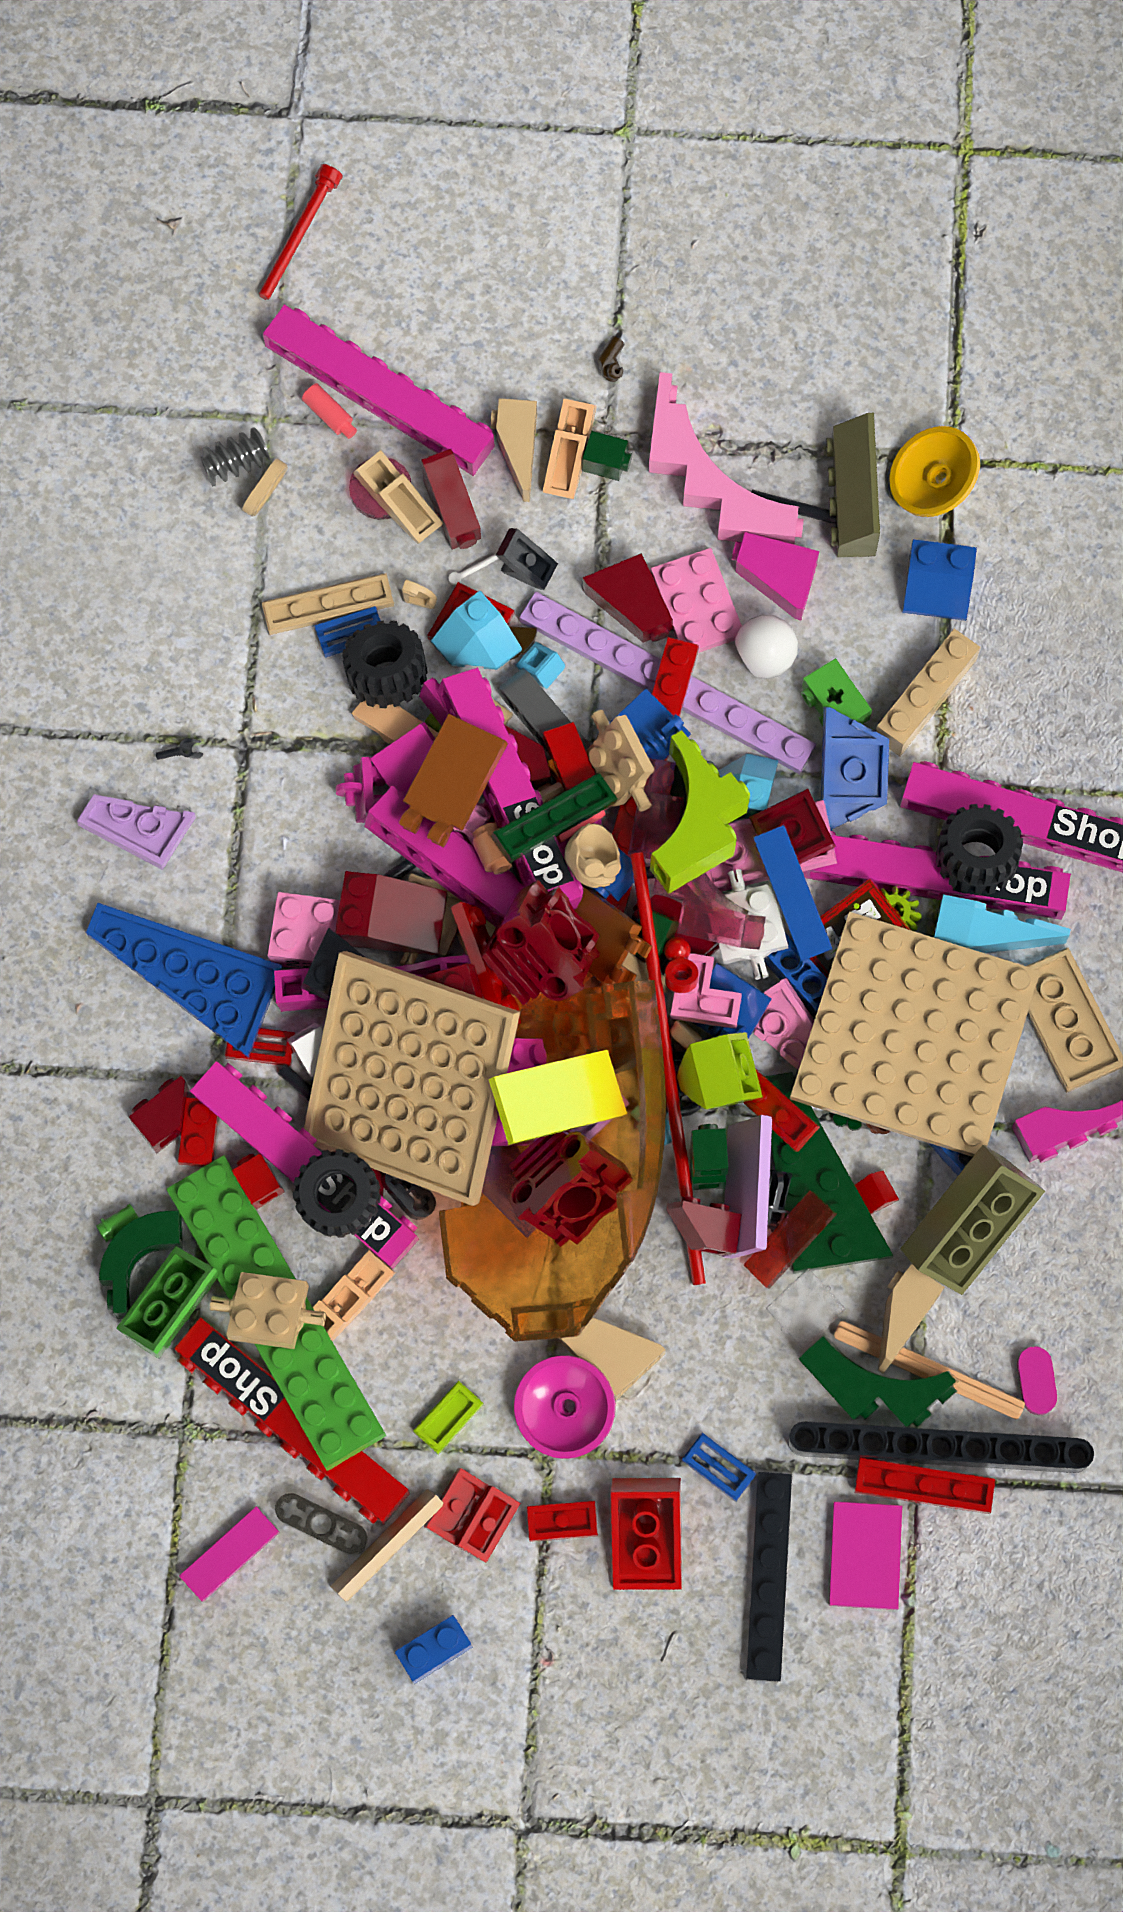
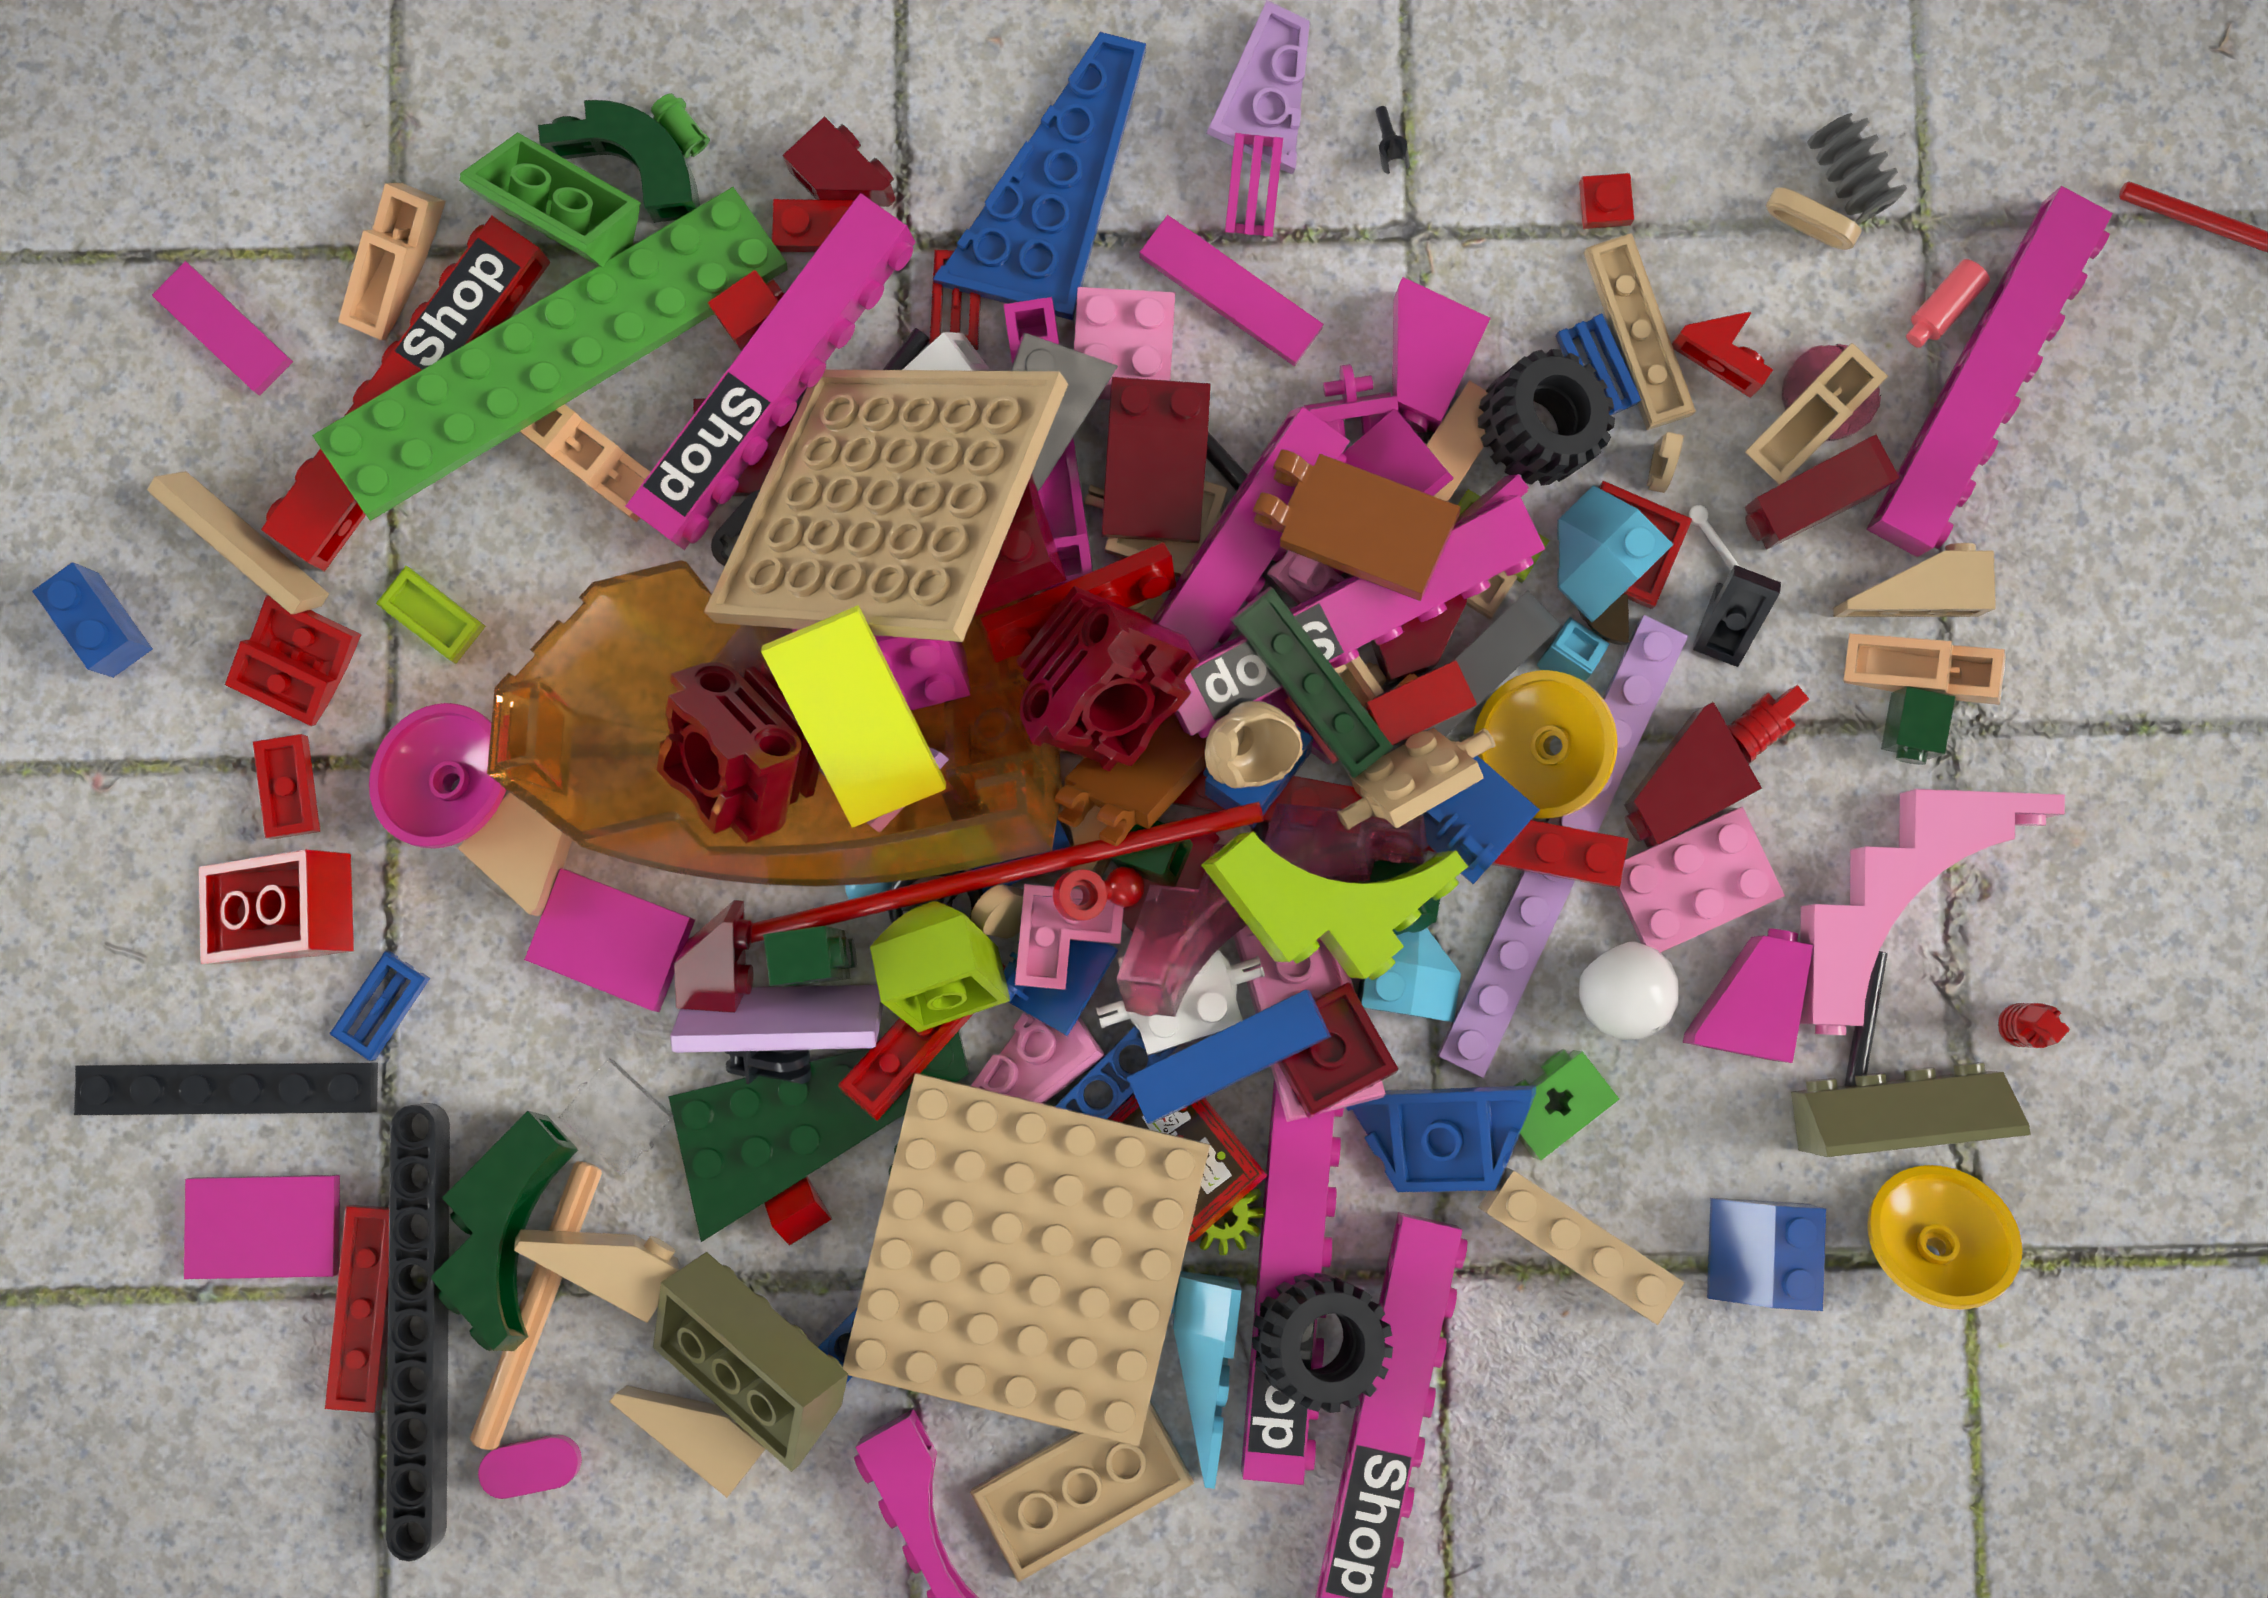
camera: 85 degrees right, 10 degrees up
(194, 1429) = (390, 259): none -> light nougat slope
(230, 846) = (1258, 142): none -> dark pink tile
(236, 616) = (1606, 201): none -> red plate
(267, 1310) = (539, 334): tan plate -> none
(273, 862) = (1231, 290): none -> dark pink tile
(295, 1520) = (269, 412): clear smoke beam -> none
(316, 1172) = (684, 386): black tyre -> none
(331, 735) = (1430, 352): none -> dark pink slope
(347, 556) = (1711, 347): none -> red slope
(488, 851) = (1252, 585): nougat brick -> none
(582, 663) = (1524, 721): none -> yellow dish
(595, 547) = (1766, 721): none -> red hinge
(608, 360) = (2075, 716): dark brown arm -> none
(685, 1302) = (609, 940): none -> dark pink tile
(790, 1239) = (712, 1091): clear red tile -> none
(805, 407) = (2031, 1025): none -> red hinge
(1023, 1255) = (694, 1433): none -> tan slope

